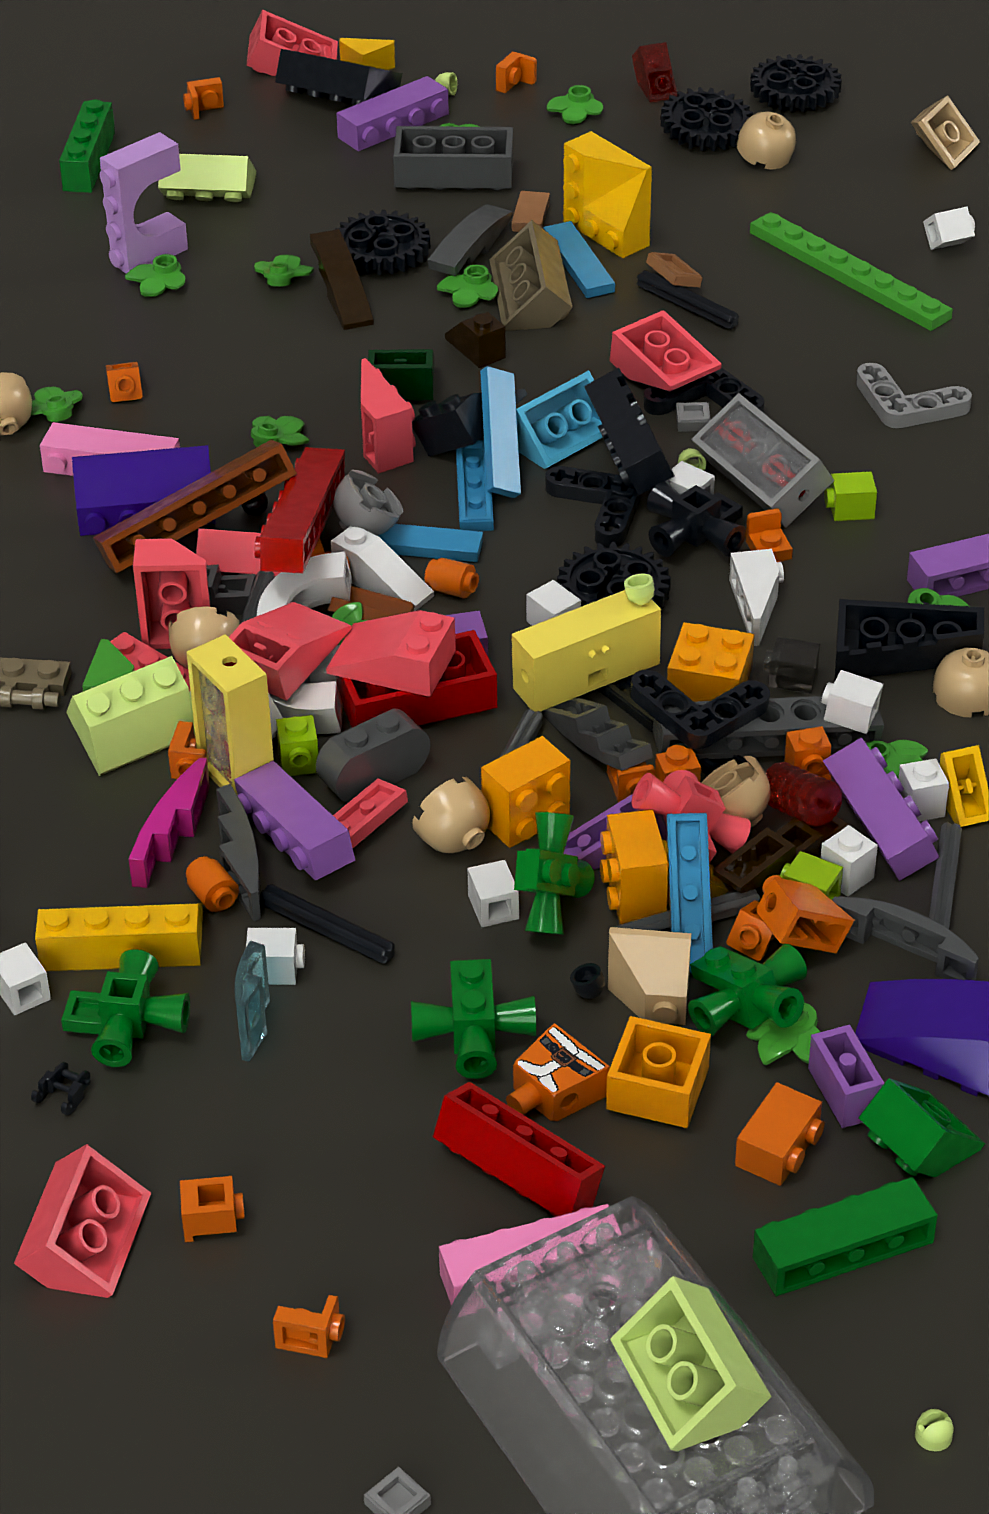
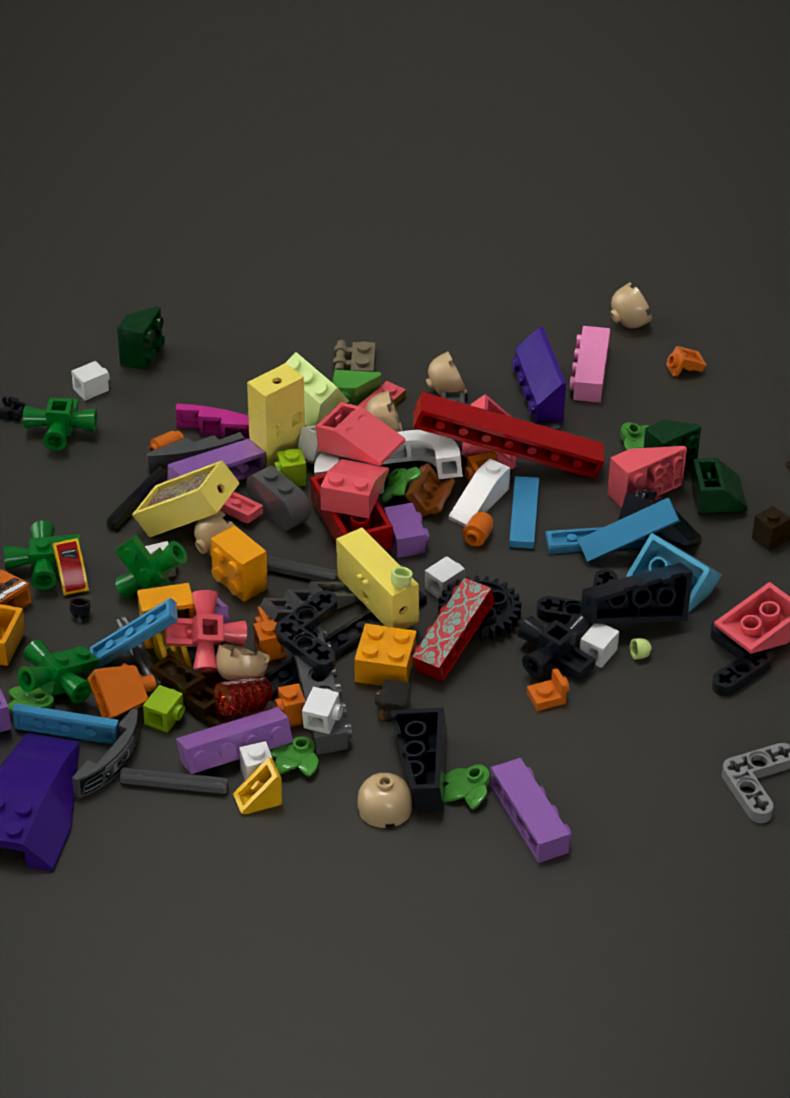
camera: 85 degrees right, 0 degrees up
(55, 403) = (649, 334): bright green plate -> none
(99, 935) = (130, 413): yellow slope -> none
(111, 580) = (444, 375): none -> tan cylinder
(166, 583) = (413, 379): coral slope -> none
(197, 503) = (516, 393): dark orange brick -> none
(252, 998) = (55, 460): clear light blue slope -> none
(282, 953) = (104, 473): white brick -> none
(330, 395) = (674, 433): none -> dark green slope
(365, 505) = (530, 469): light grey cylinder -> none
(401, 827) = (186, 499): none -> light yellow brick
(510, 974) = (70, 567): none -> slope
(650, 972) = (70, 625): tan slope -> none
(678, 589) = (453, 629): none -> red brick
(692, 416) = (706, 652): light grey tile -> none
(755, 586) = (477, 682): white slope -> none
(762, 459) = (627, 675): brick -> none
(850, 974) = (65, 724): none -> dark azure tile
(851, 496) = (606, 736): lime brick -> none
(854, 854) = (182, 721): white brick -> none

